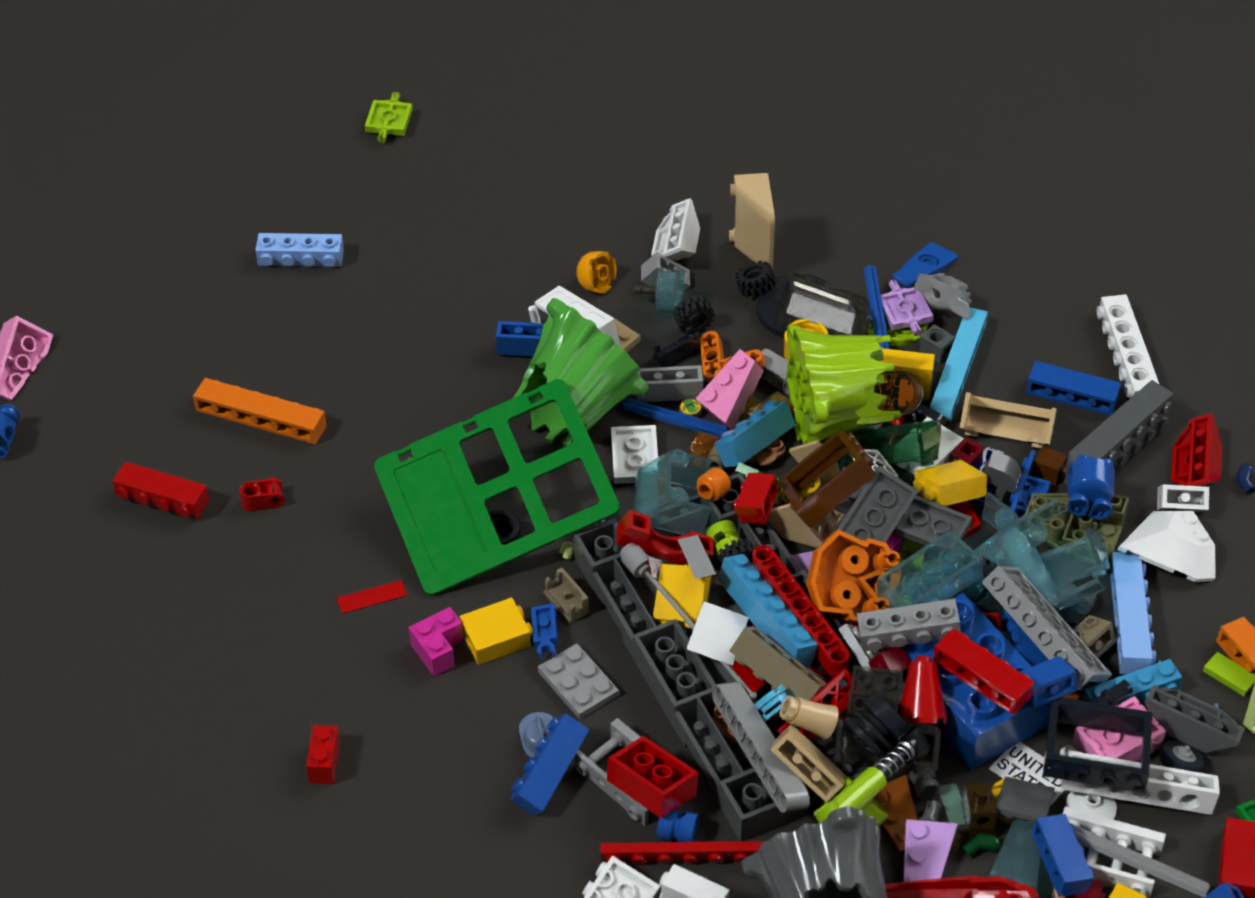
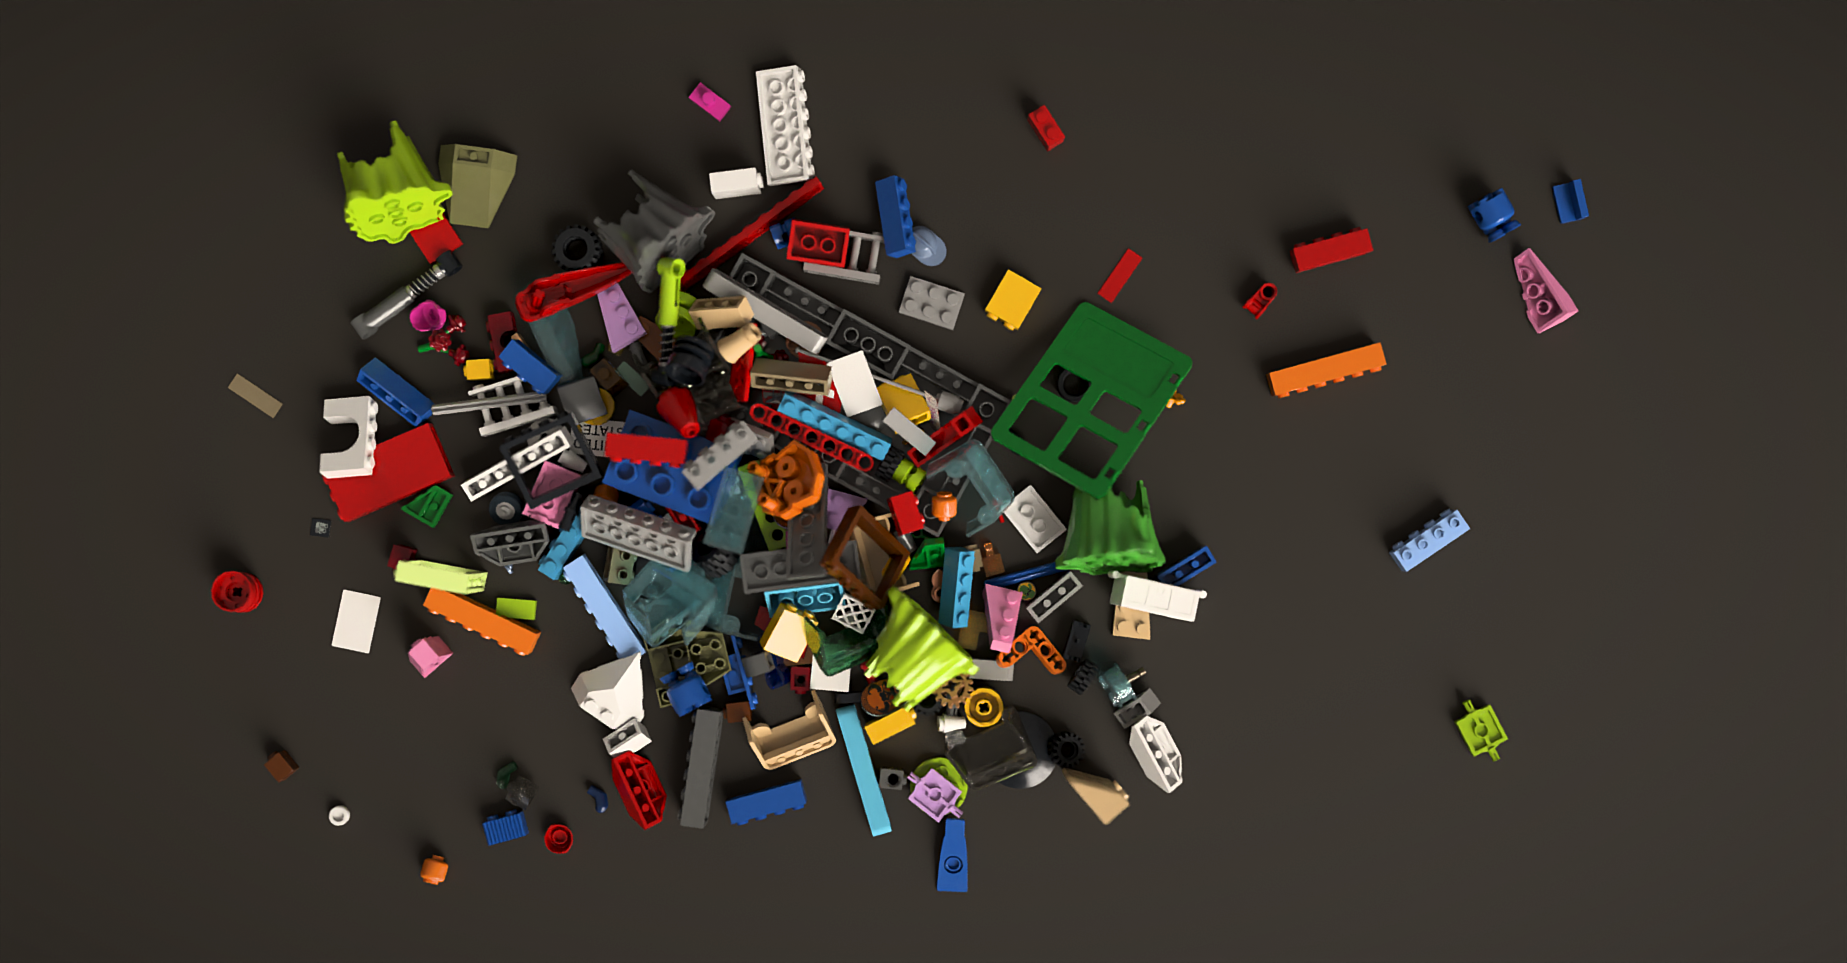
camera: 140 degrees right, 40 degrees up
(434, 638) = (1048, 261): dark pink brick -> none
(545, 629) = (981, 324): blue plate -> none
(567, 596) = (988, 361): dark tan hinge -> none
(596, 271) = (1189, 671): light orange cylinder -> none
(770, 701) = (776, 346): medium azure wheel -> none
(875, 303) = (953, 776): blue axle -> none
(944, 293) = (910, 823): light grey piece -> none
(1051, 680) = (608, 481): blue panel -> none
(1126, 343) = (779, 910): white brick -> none

